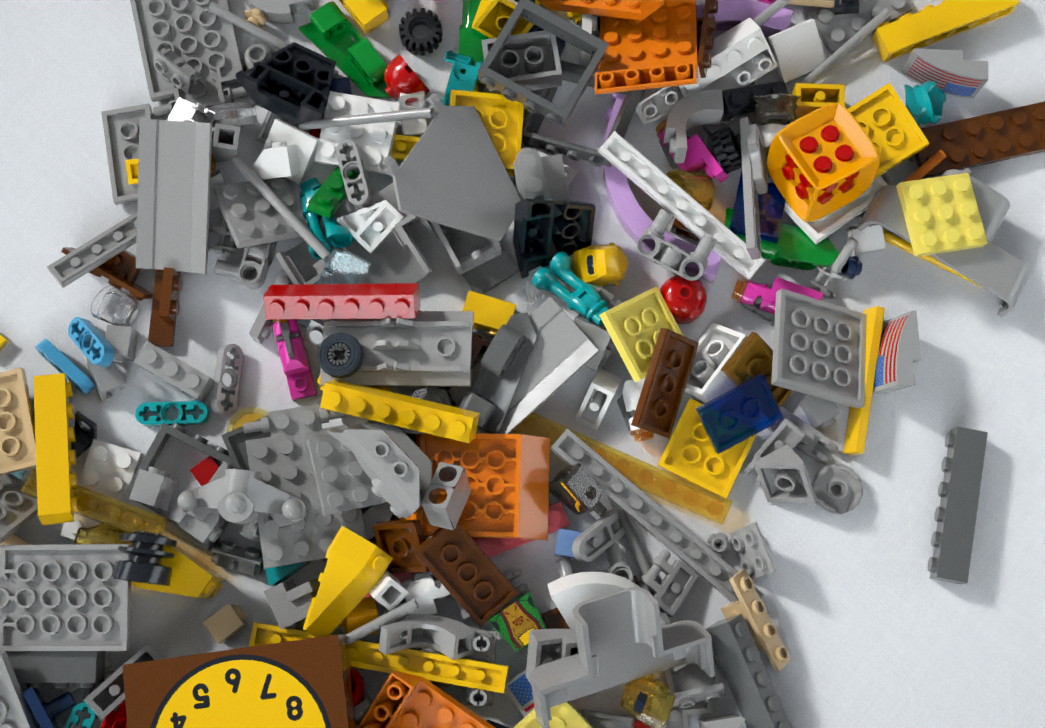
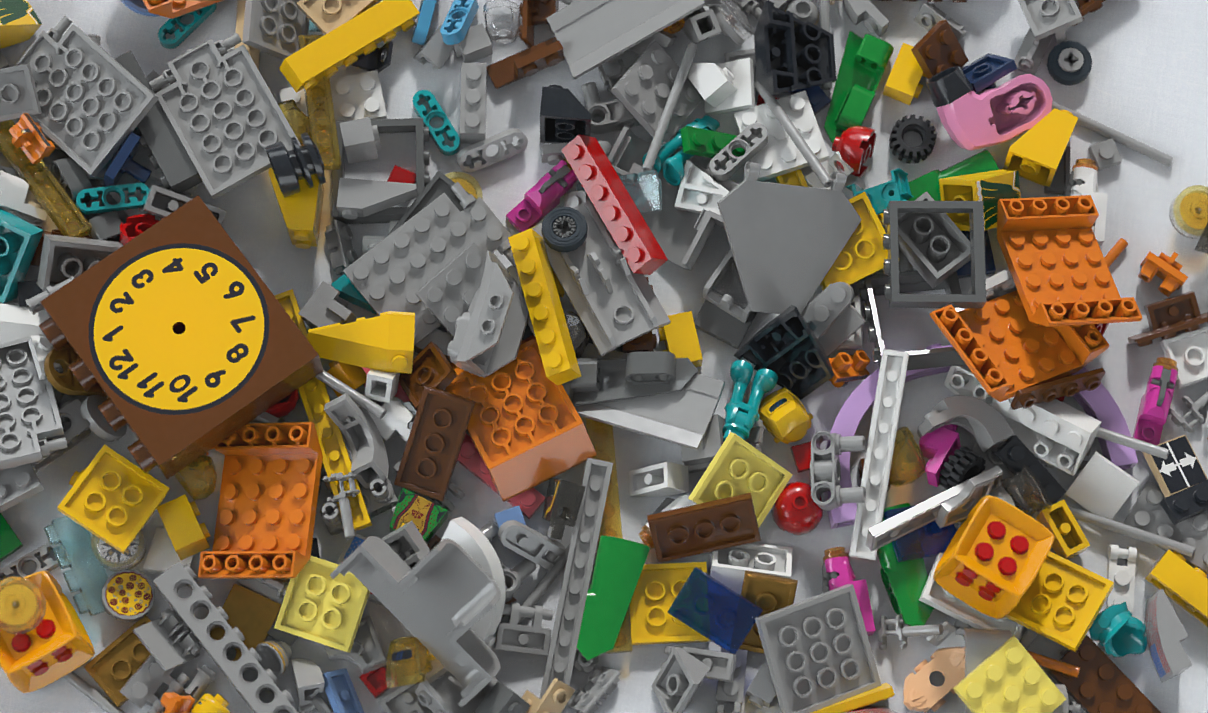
camera: 55 degrees right, 5 degrees down
(226, 622) = (279, 269): tan brick -> none
(236, 301) = (562, 116): none -> black slope
(241, 499) = (390, 216): light grey piece -> none
(455, 498) = (483, 381): light grey piece -> none
(478, 681) = (343, 500): none -> light grey piece
(589, 188) = (849, 367): none -> orange hips
(641, 267) = (802, 456): none -> red tile
(679, 494) = (610, 593): none -> green panel
(852, 267) = (920, 648): dark blue plate -> none
(875, 76) = (1121, 576): none -> white plate
(883, 247) = (920, 693): none -> light nougat piece

